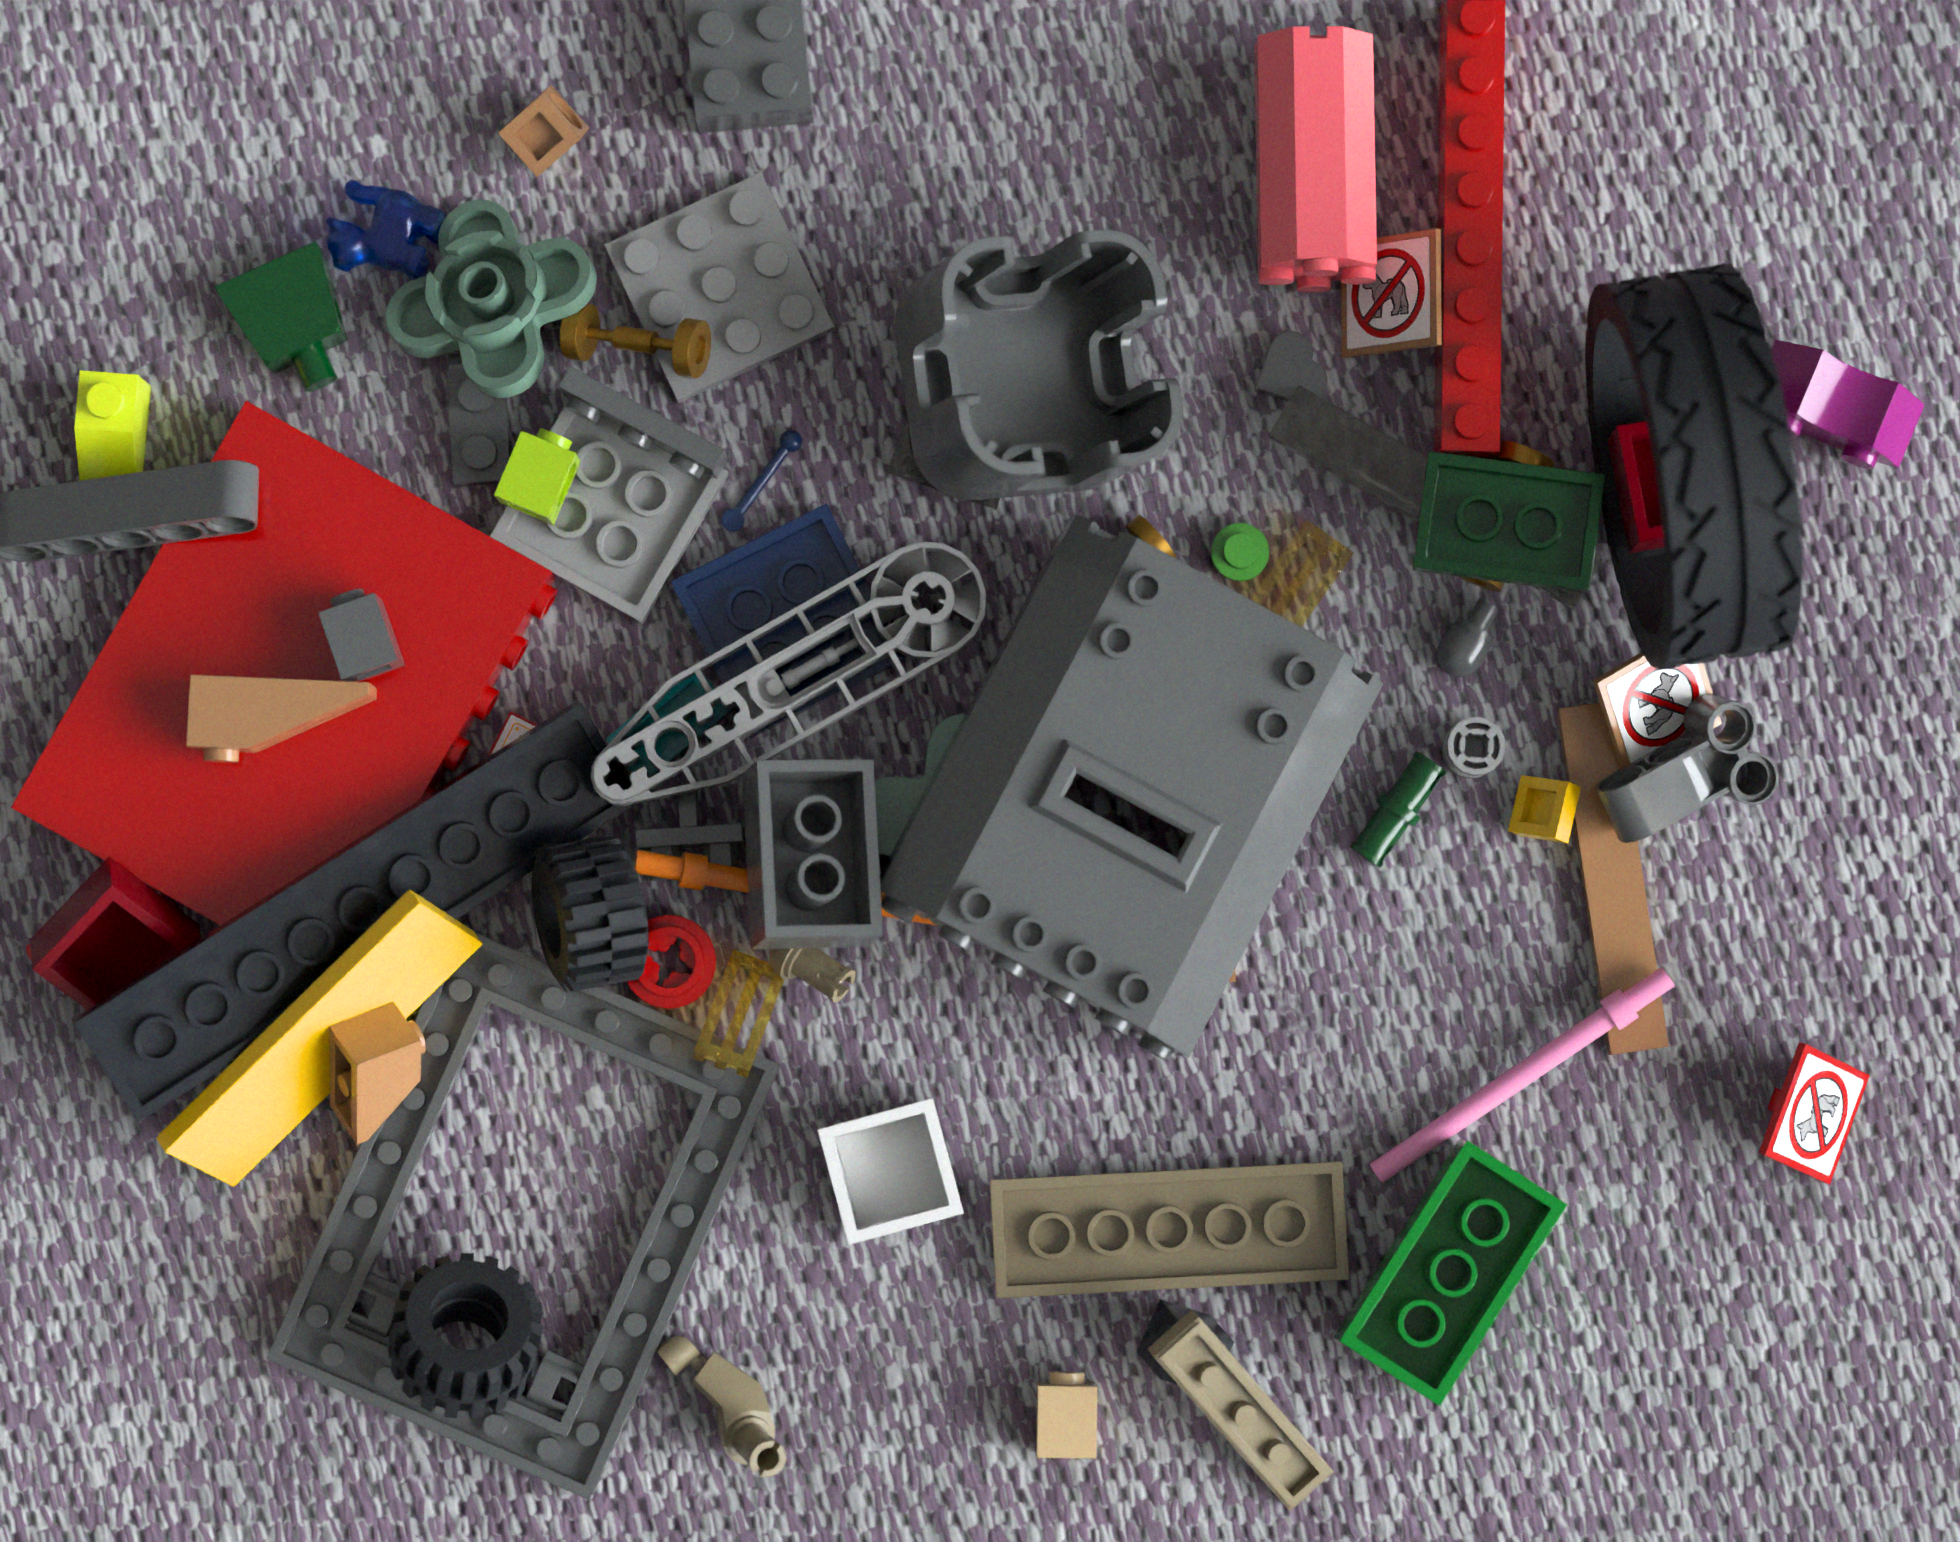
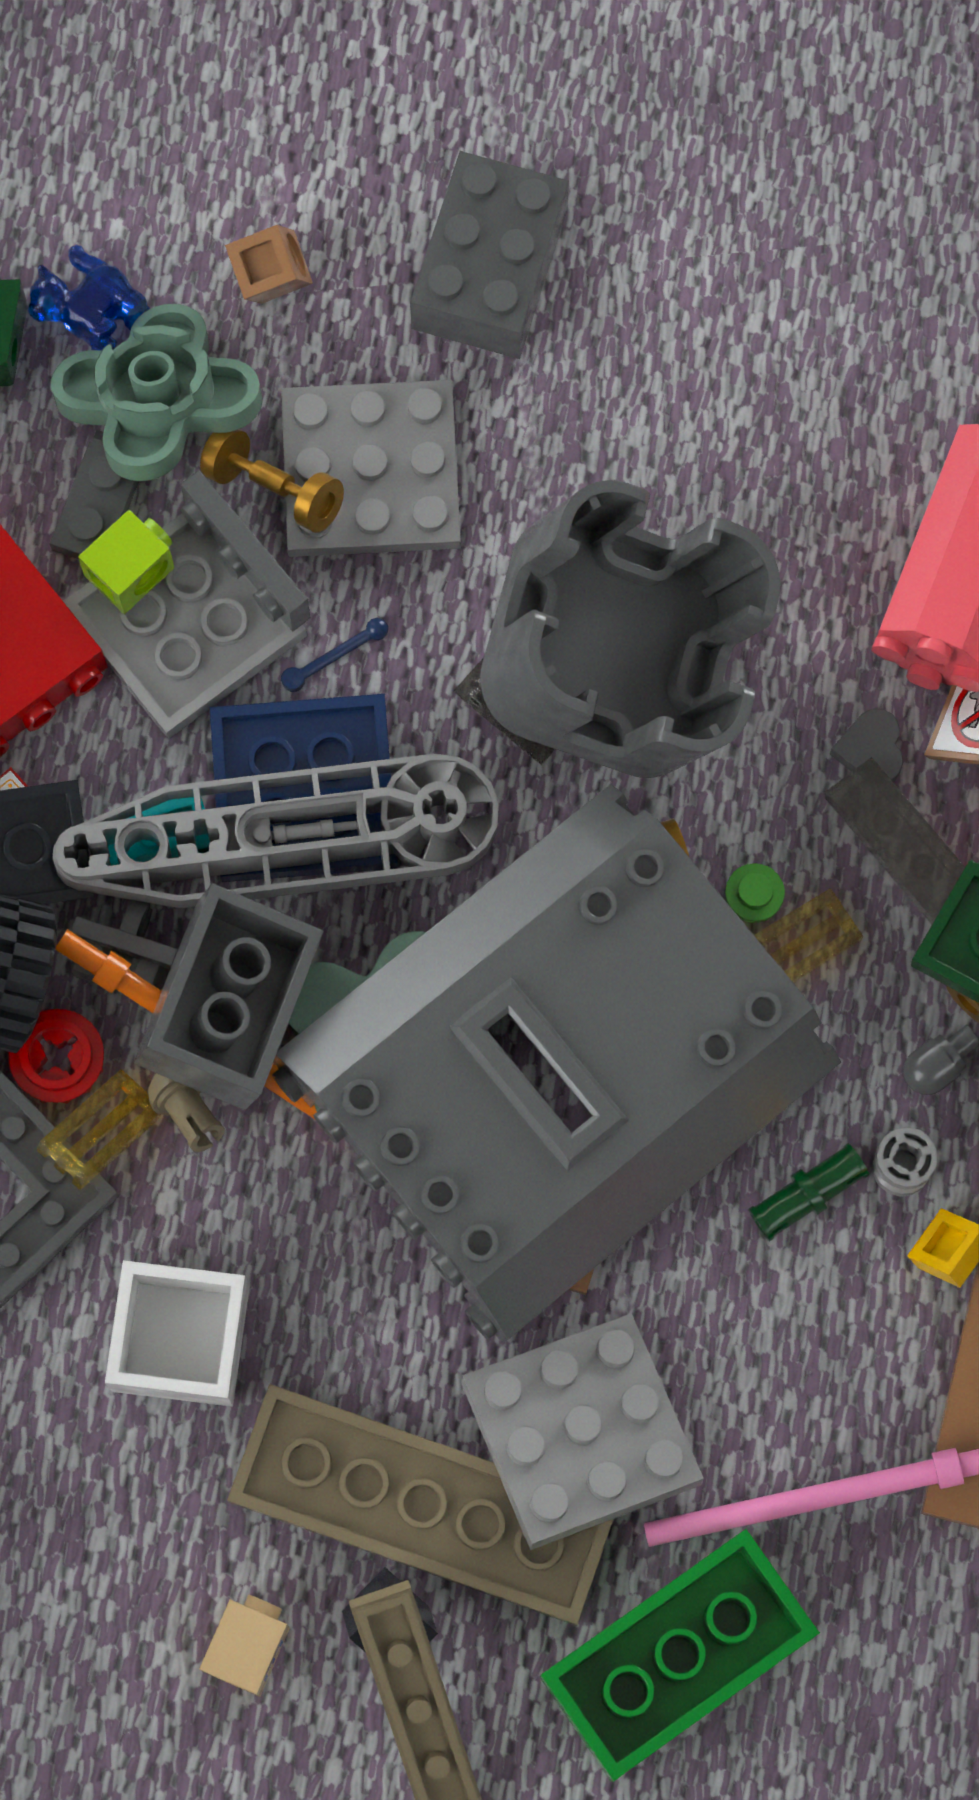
camera: 25 degrees right, 10 degrees down
(1283, 1108) = (581, 1431): none -> light grey plate

